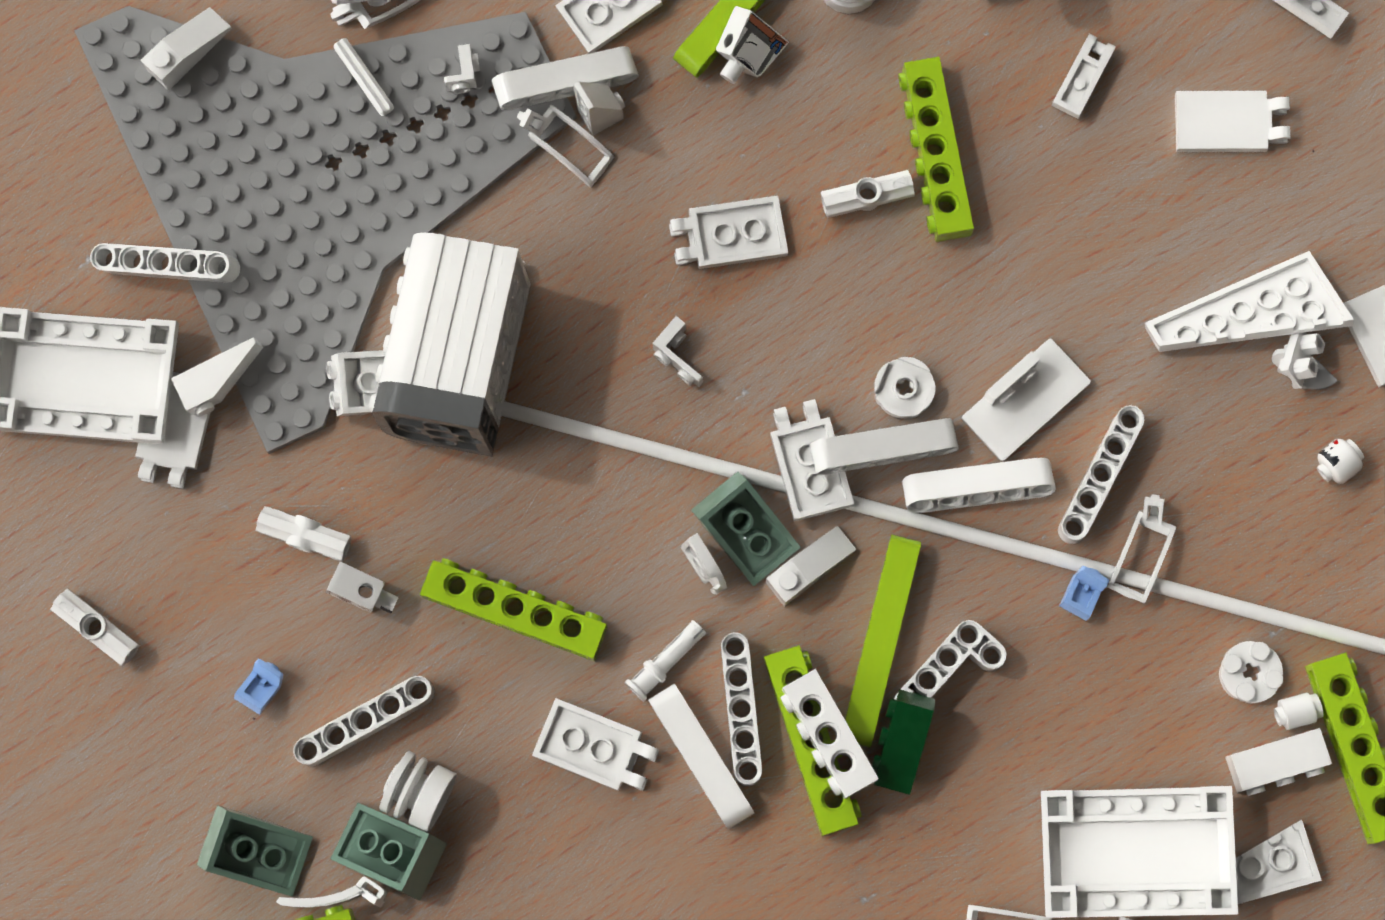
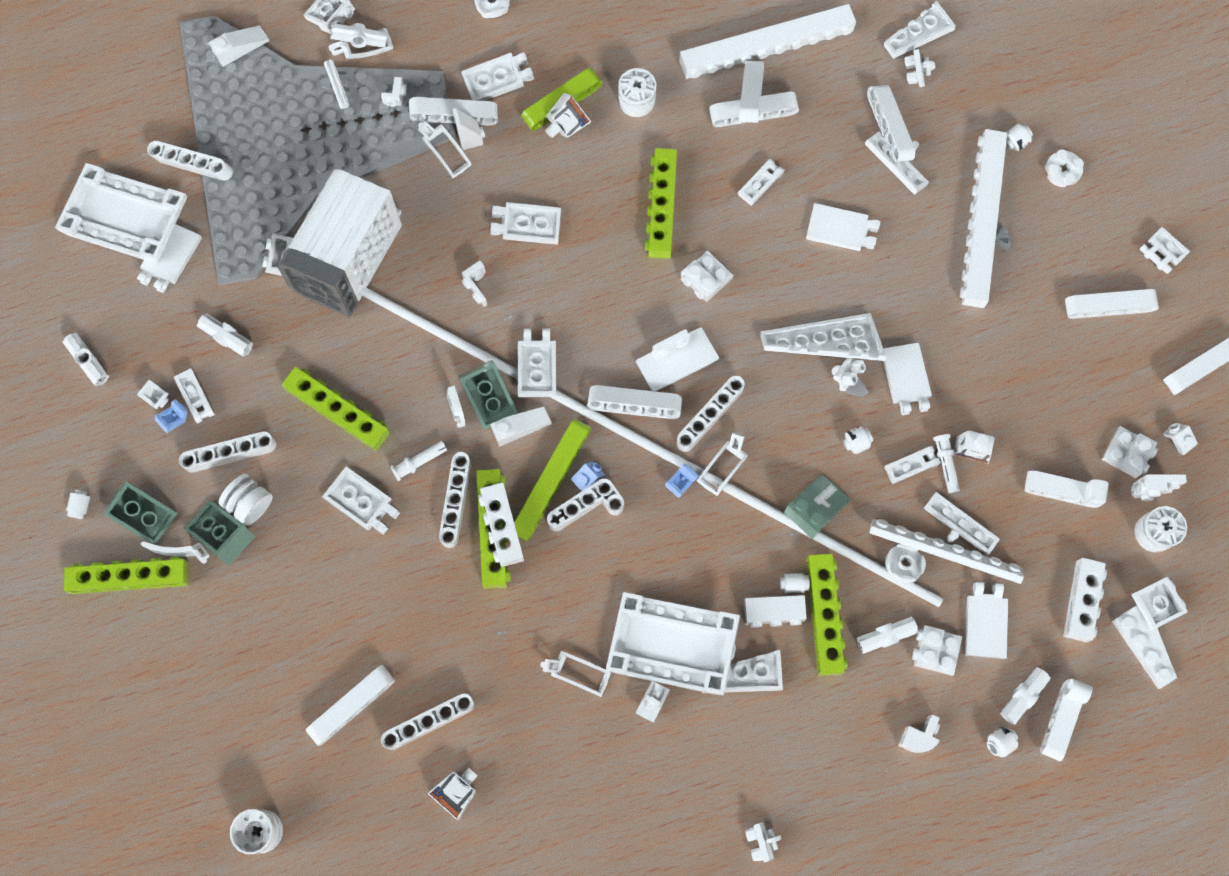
camera: 10 degrees right, 5 degrees down
(154, 862) = (78, 504): none -> white brick
(213, 379) = (197, 232): white slope -> none
(220, 659) = (153, 395): none -> white bracket
(283, 642) = (193, 395): none -> white plate
(347, 582) = (241, 368): white torso -> none
(701, 756) = (423, 522): white beam -> none
(884, 446) = (583, 365): white beam -> none
(886, 188) = (626, 218): white piece -> none
(903, 741) = (546, 541): dark green brick -> none
(920, 381) = (605, 325): white plate -> none
(936, 620) = (587, 475): none -> light blue bracket
(1036, 252) = (706, 276): none -> white plate
(1257, 655) = (763, 546): white plate -> none
(1303, 582) = (816, 506): none -> sand green slope

